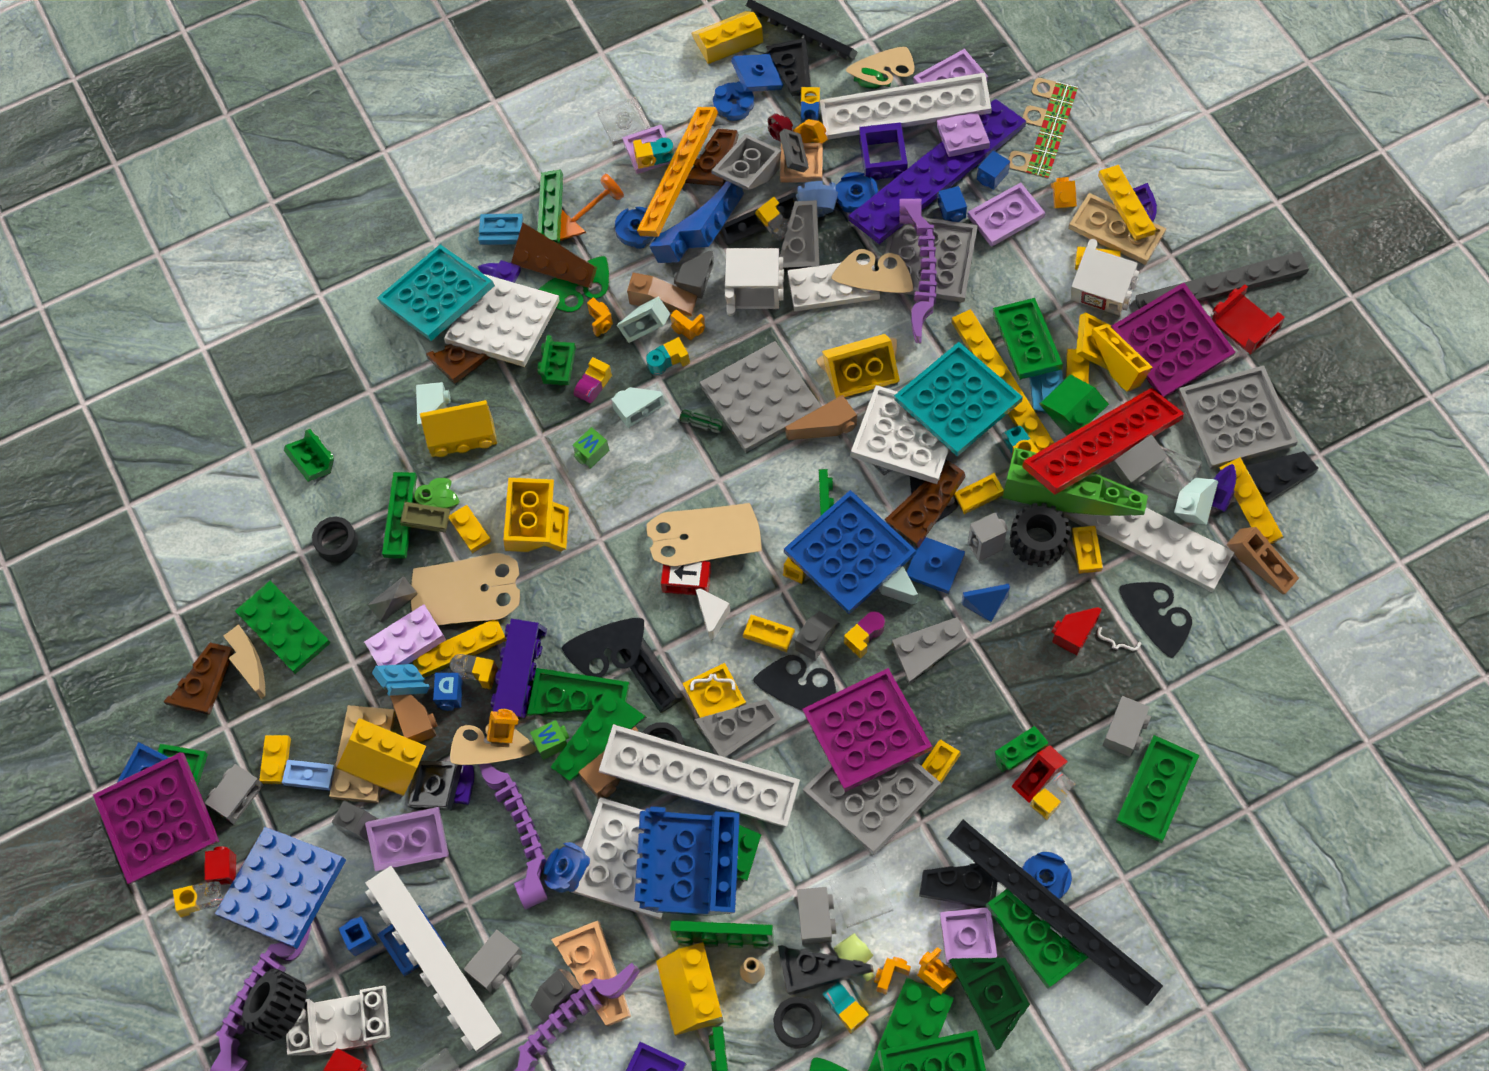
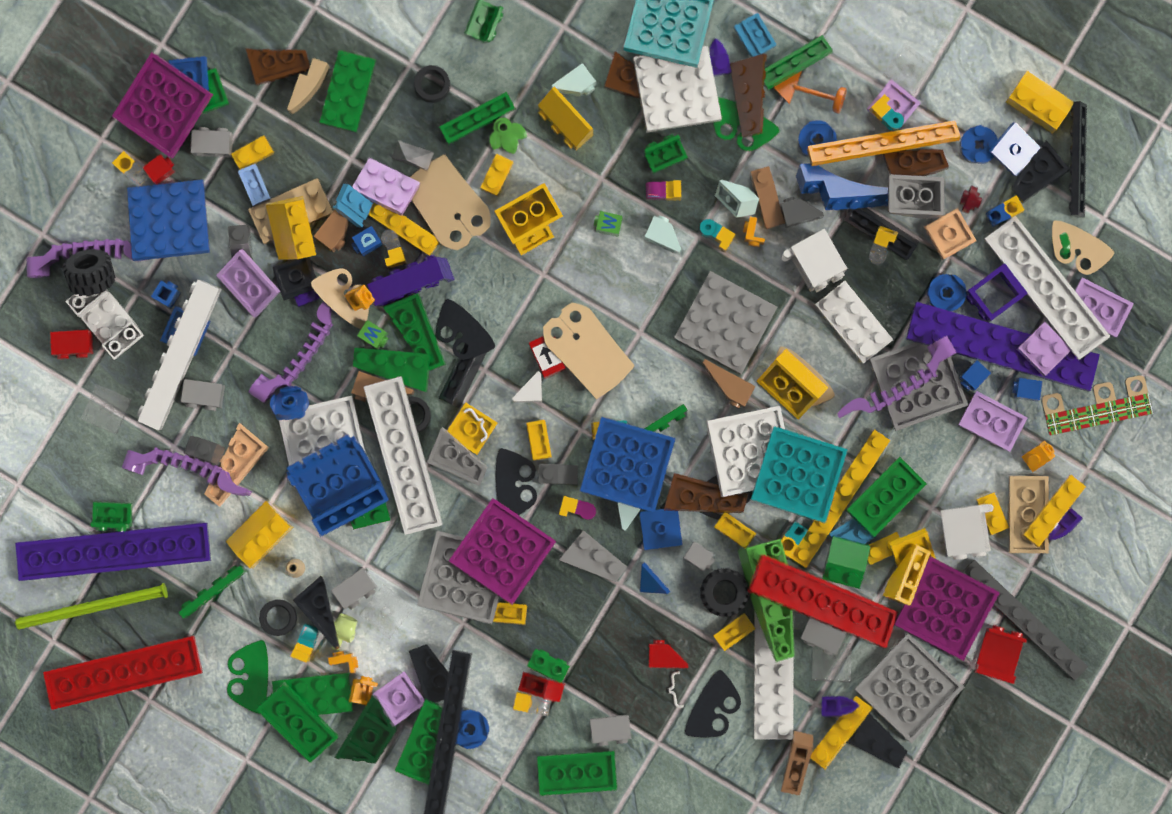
camera: 60 degrees right, 20 degrees up
(425, 517) = (484, 139): olive plate -> none
(601, 314) = (726, 159): light orange bracket -> none
(701, 421) = (679, 291): dark green axle -> none
(722, 933) = (300, 529): green plate -> none
(794, 150) = (951, 224): dark grey plate -> none
(801, 239) = (876, 276): light grey wing -> none
(812, 131) = (980, 223): light orange bracket -> none
(824, 194) = (919, 267): medium blue cone -> none
(884, 280) = (869, 342): tan piece -> none
(1196, 500) = (817, 692): light aqua slope -> none

